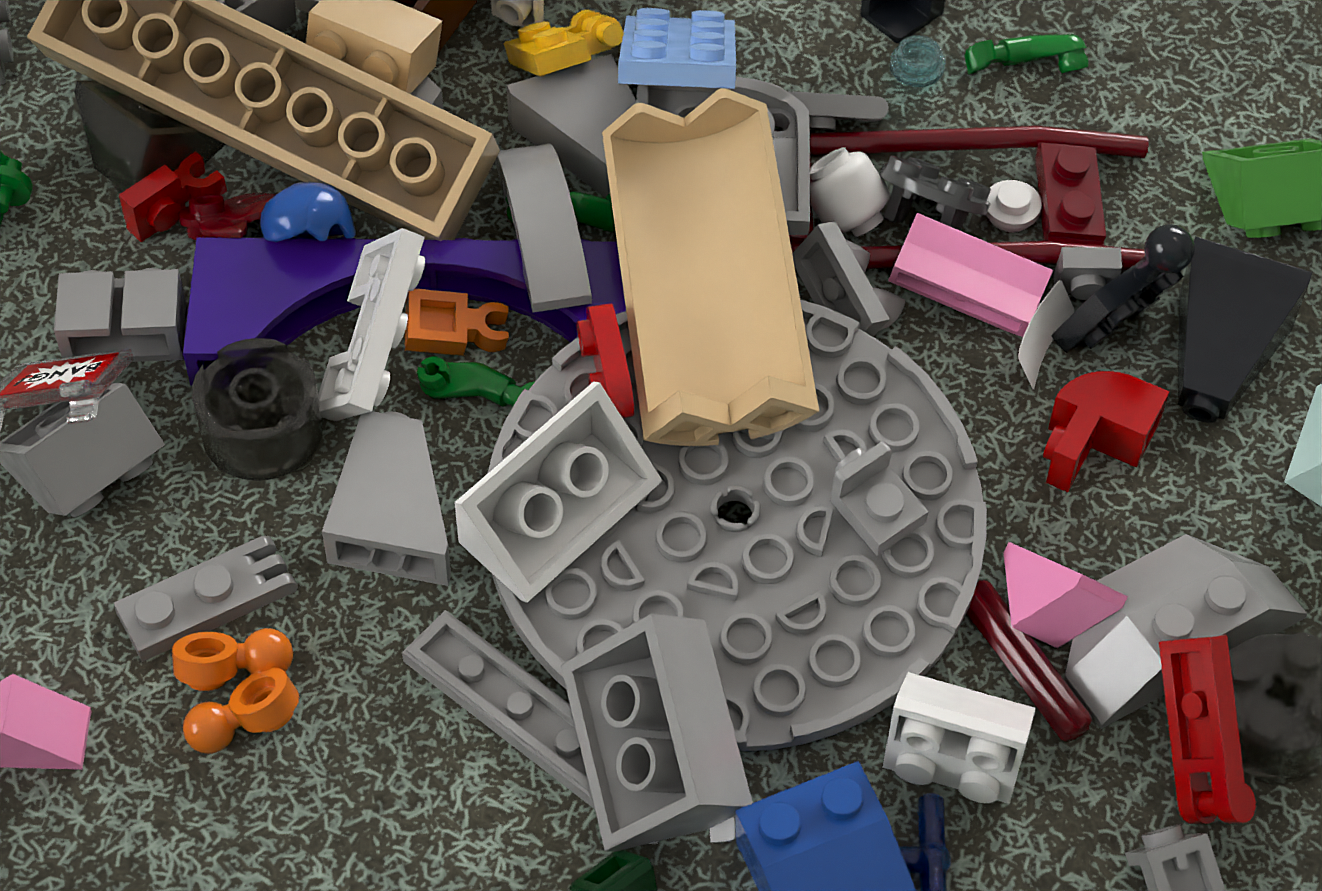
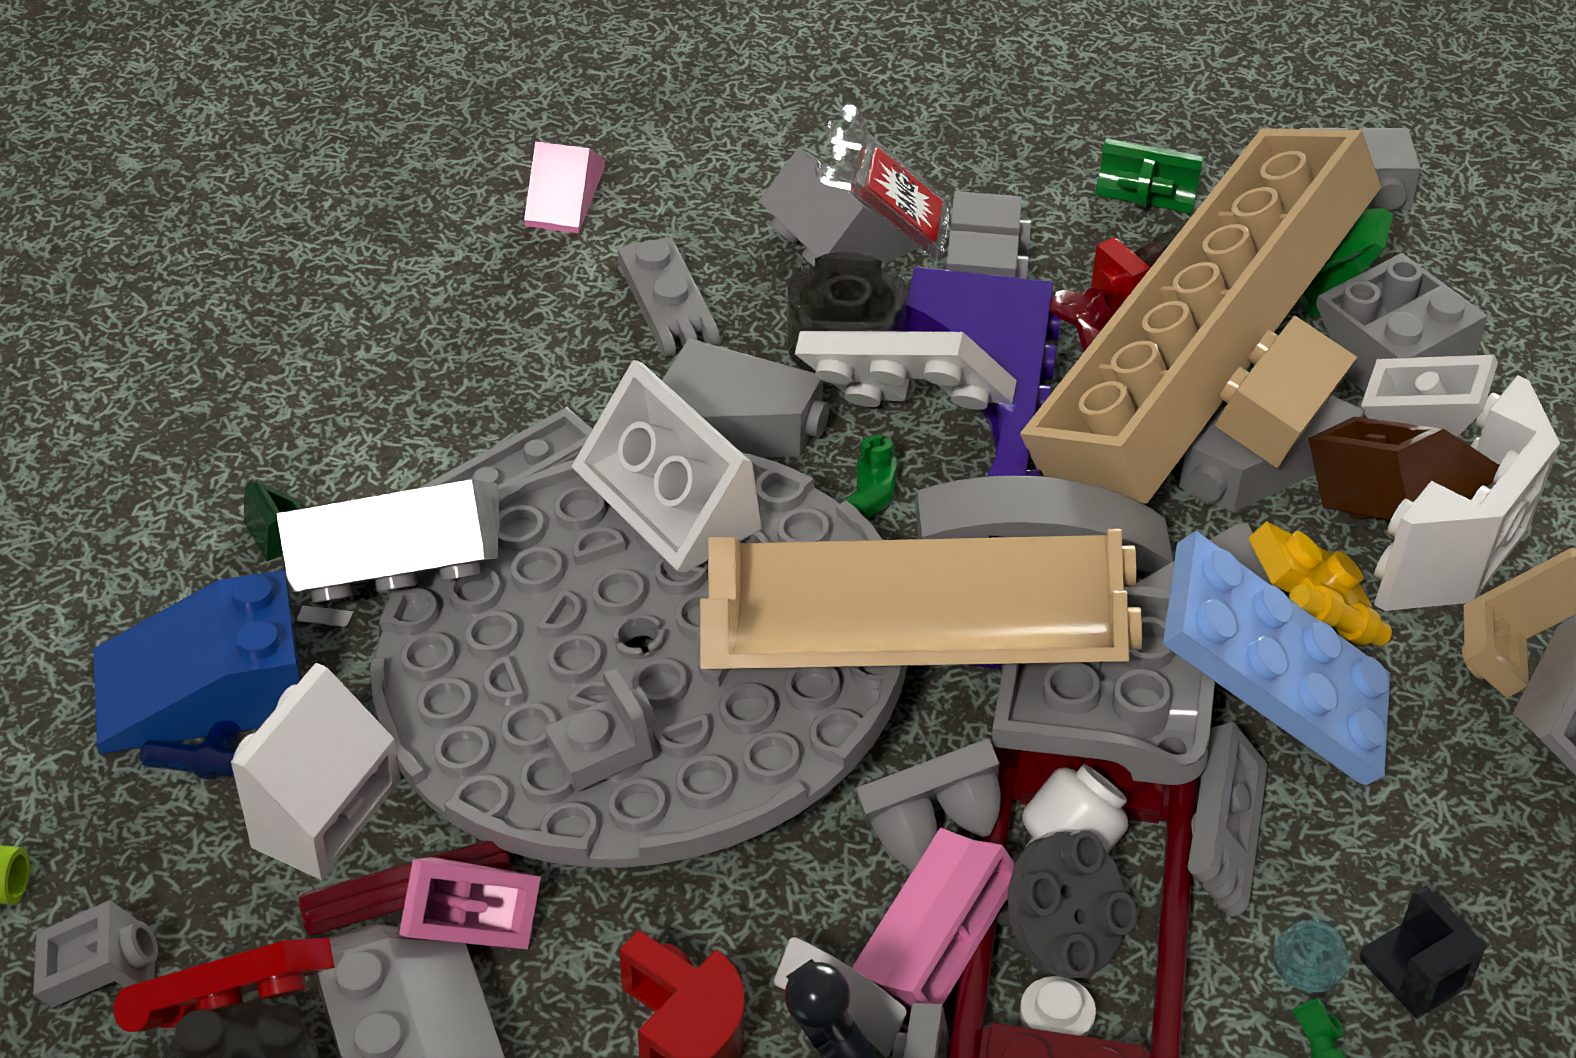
camera: 100 degrees right, 10 degrees down
(213, 658) = (594, 286): orange plate -> none
(258, 704) = (536, 306): orange plate -> none
(307, 213) = (1058, 338): blue hair -> none
(445, 324) = (944, 456): orange plate -> none
(601, 338) = (813, 515): red plate -> none

